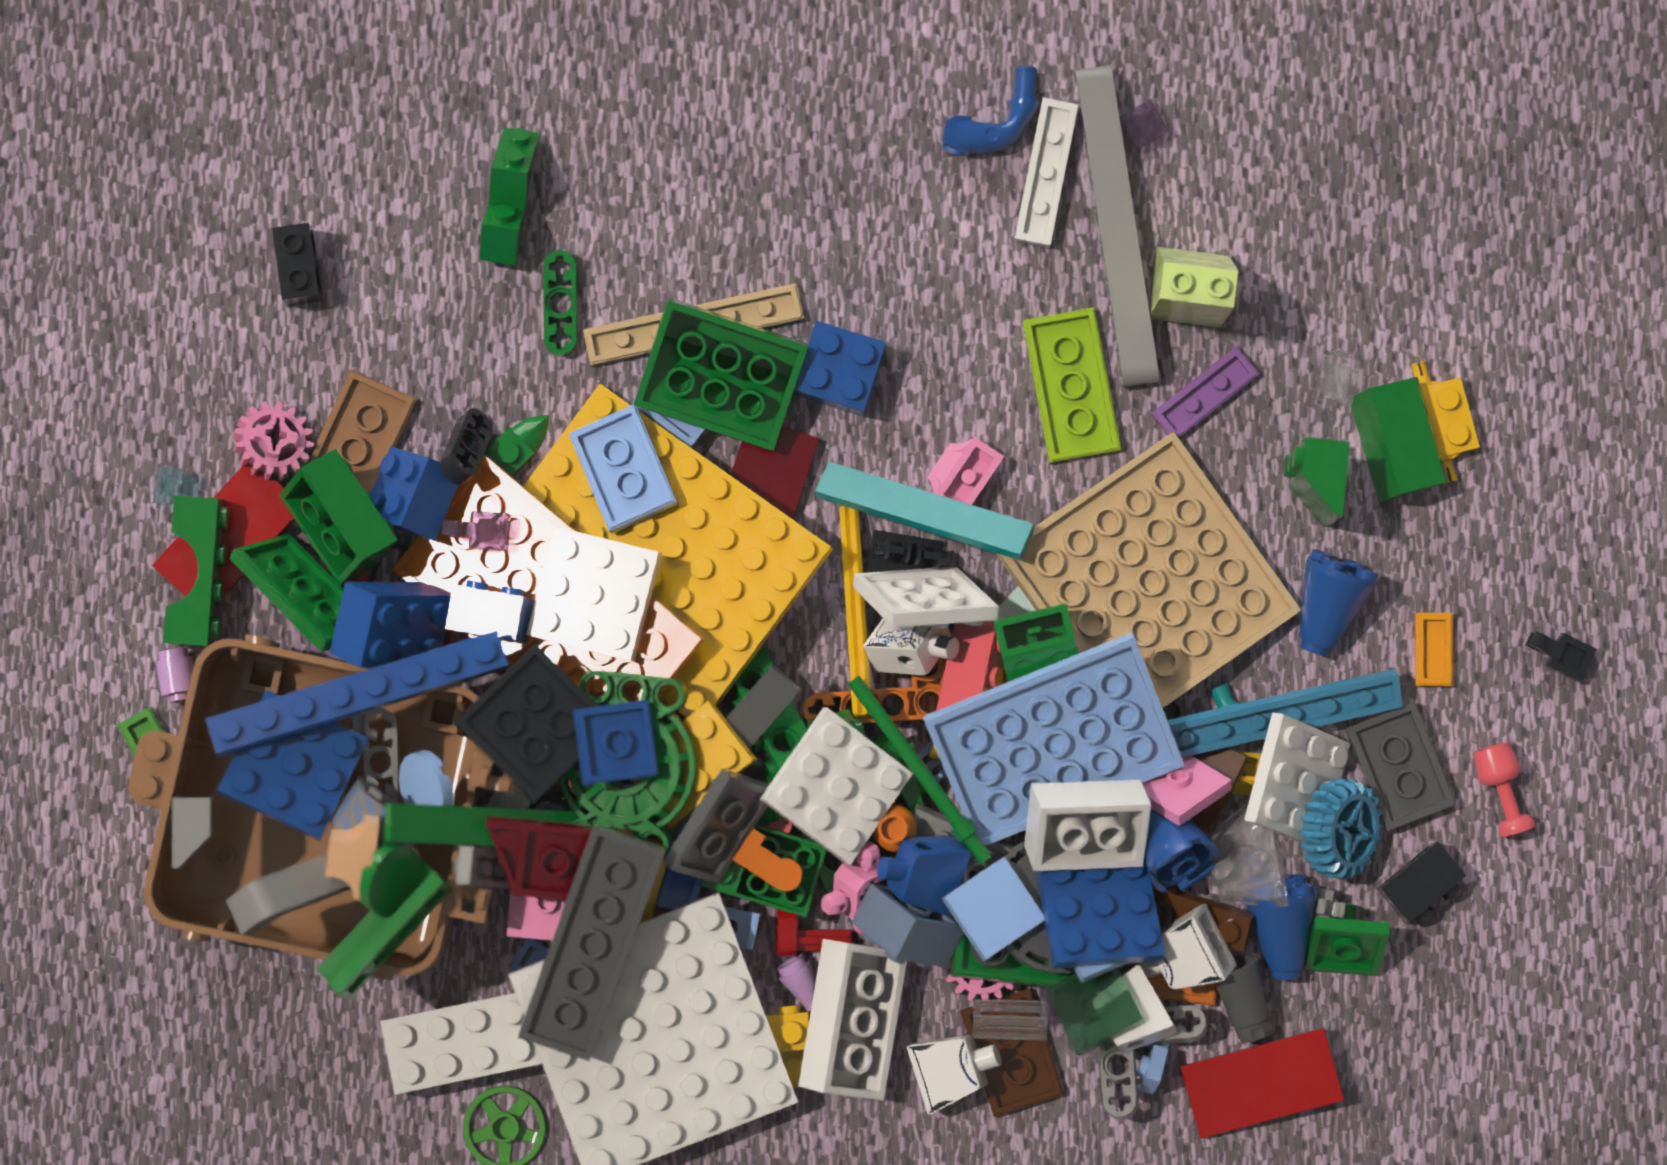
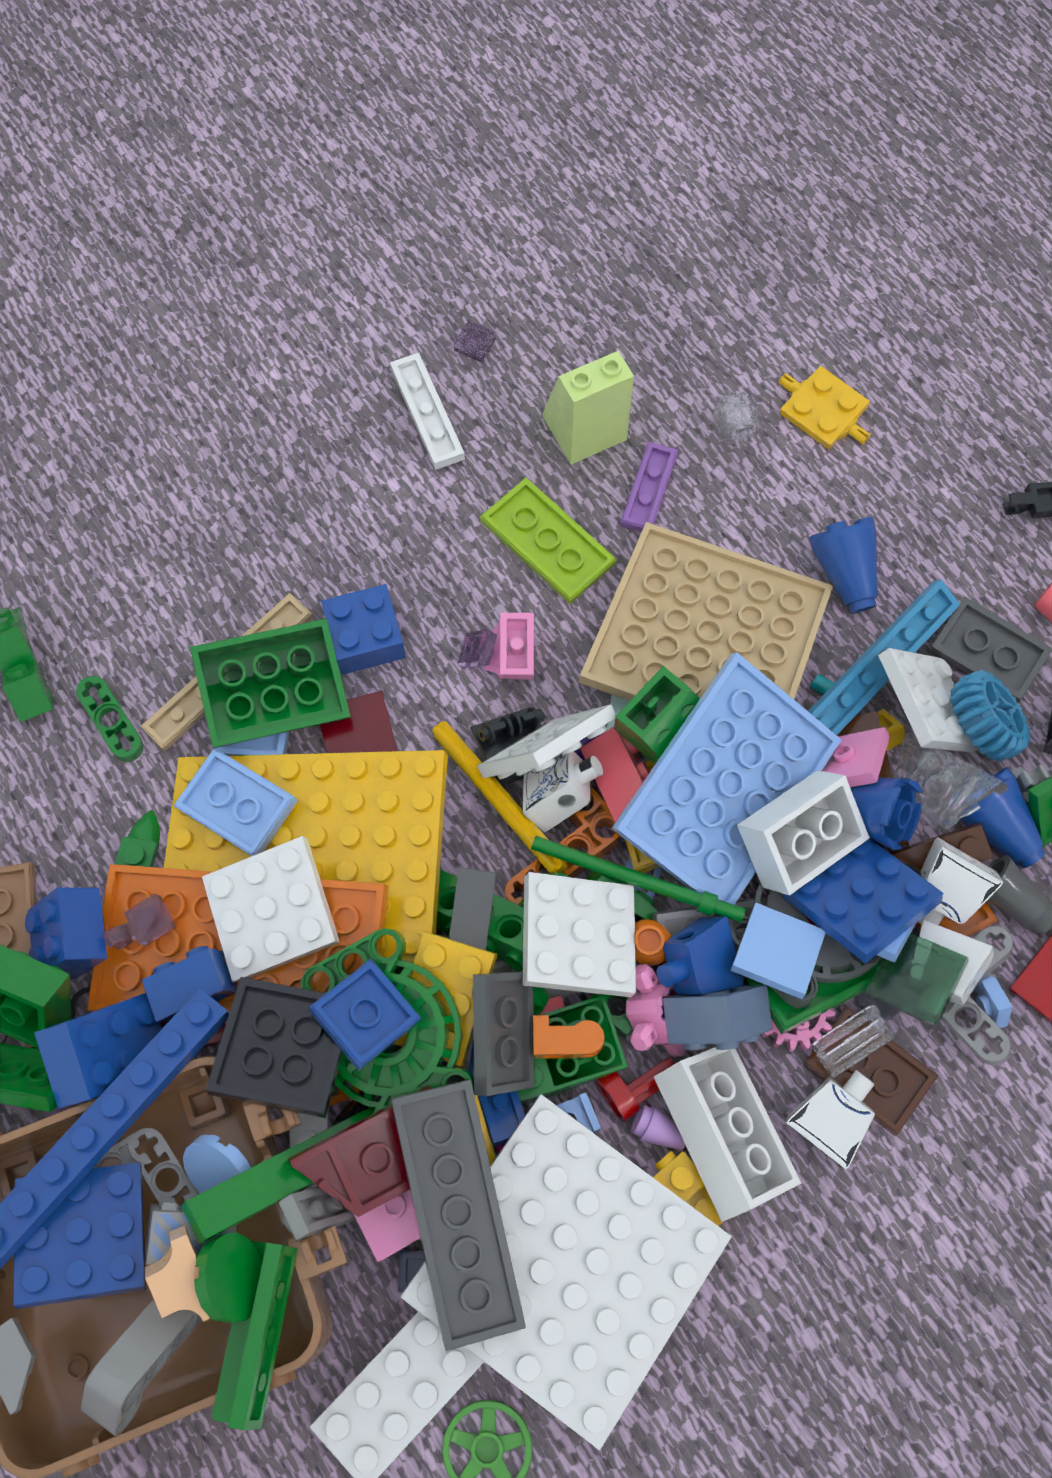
camera: 30 degrees left, 15 degrees down
(461, 438) = (91, 867): black beam -> none
(925, 510) = (500, 686): tile -> none
(931, 455) = (477, 649): none -> clear purple plate
(966, 136) = (358, 416): blue piece -> none
(1117, 226) = (508, 417): light grey beam -> none
(1319, 476) = (780, 476): green slope -> none
(1398, 439) = (809, 430): green slope -> none
(1433, 649) = (946, 556): light orange tile -> none

